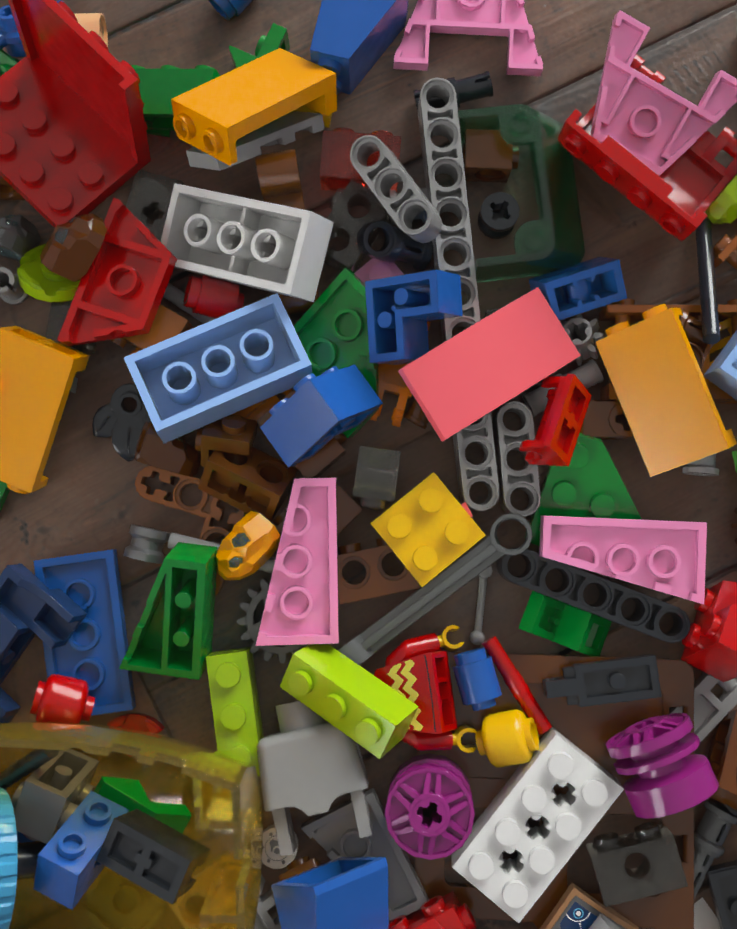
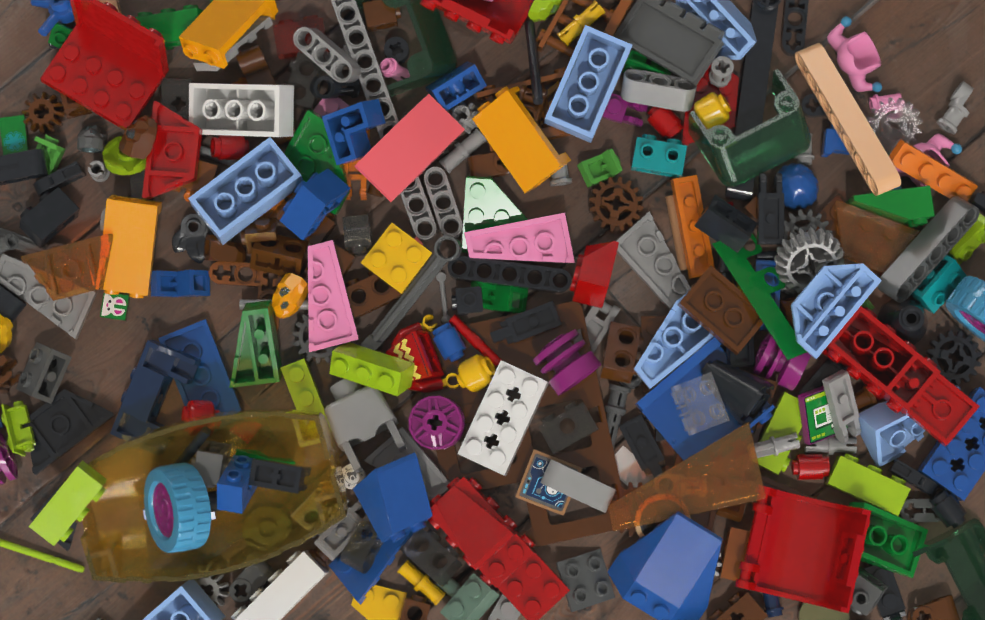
camera: 10 degrees left, 0 degrees up
(88, 485) = (180, 283): none -> blue slope
(146, 544) = (225, 311): flat silver wheel -> none
(487, 240) = (390, 68): none -> bright pink pin
(520, 621) = (467, 300): none -> black bracket
(559, 423) = (461, 173): red hinge -> none

